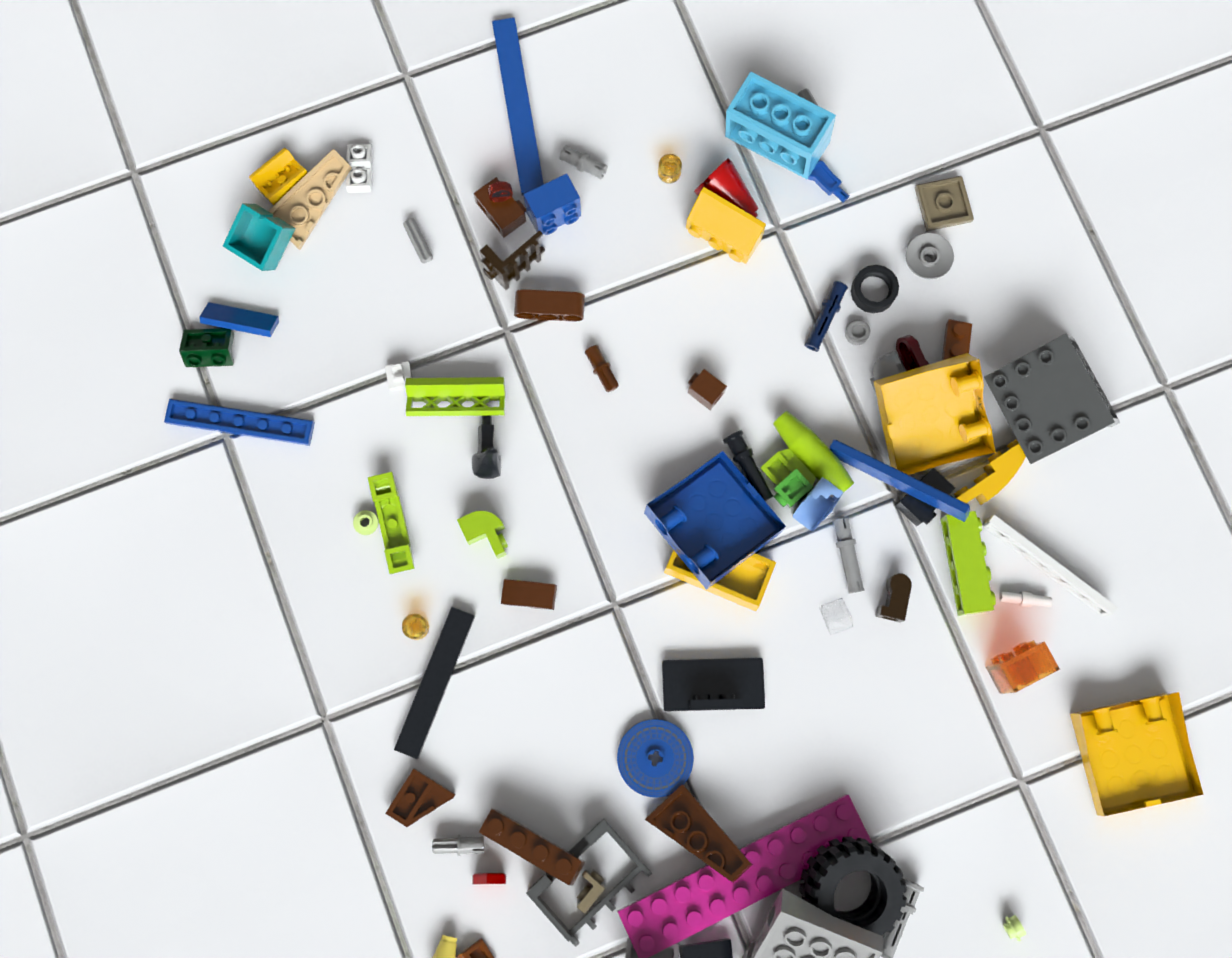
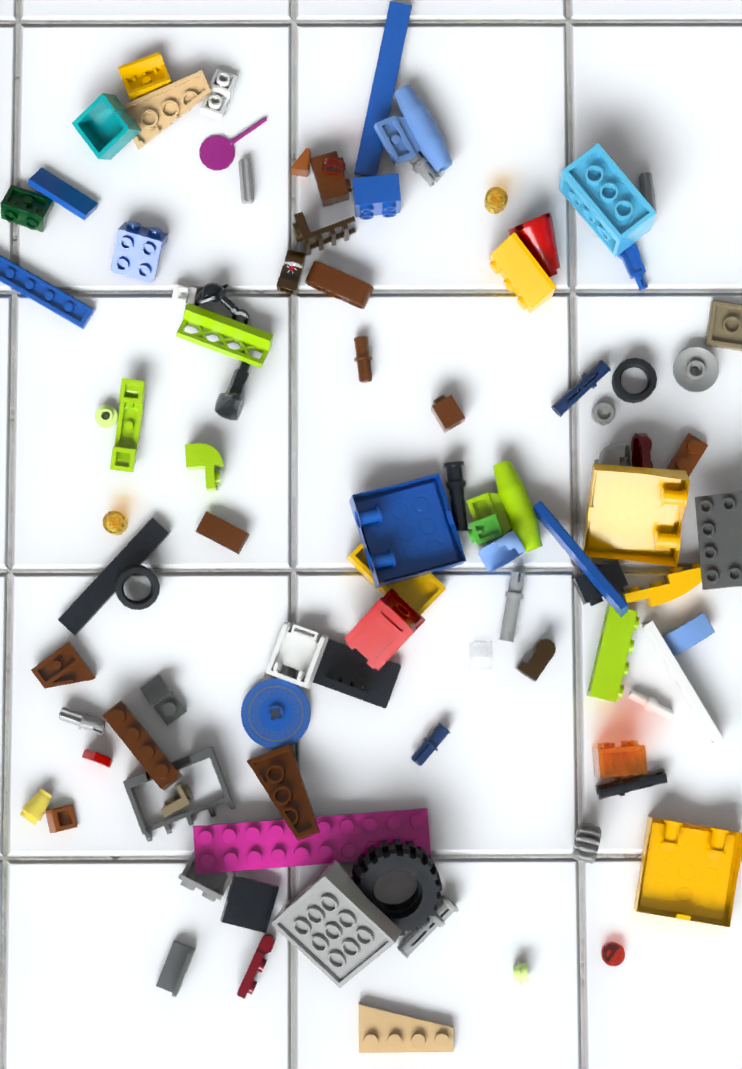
camera: 20 degrees right, 5 degrees up
(336, 347) = (138, 251): none -> bracket
(379, 222) = (218, 151): none -> magenta piece
(430, 358) = (214, 293): none -> black piece
(467, 204) = (302, 164): none -> dark orange slope
(481, 690) = (141, 604): none -> black tyre
(497, 311) = (291, 272): none -> dark brown leg
(534, 790) = (163, 700): none -> dark grey slope
(564, 133) = (413, 132): none -> medium blue plate
(653, 685) = (299, 651): none -> white container
(733, 628) = (384, 629): none -> container
(824, 727) = (430, 744): none -> dark blue axle
(1024, 765) = (586, 843): none -> light grey gear
(1033, 514) = (688, 634): none -> medium blue slope
(1033, 693) = (626, 785): none -> black pin
(1096, 870) = (612, 953): none -> clear red tile

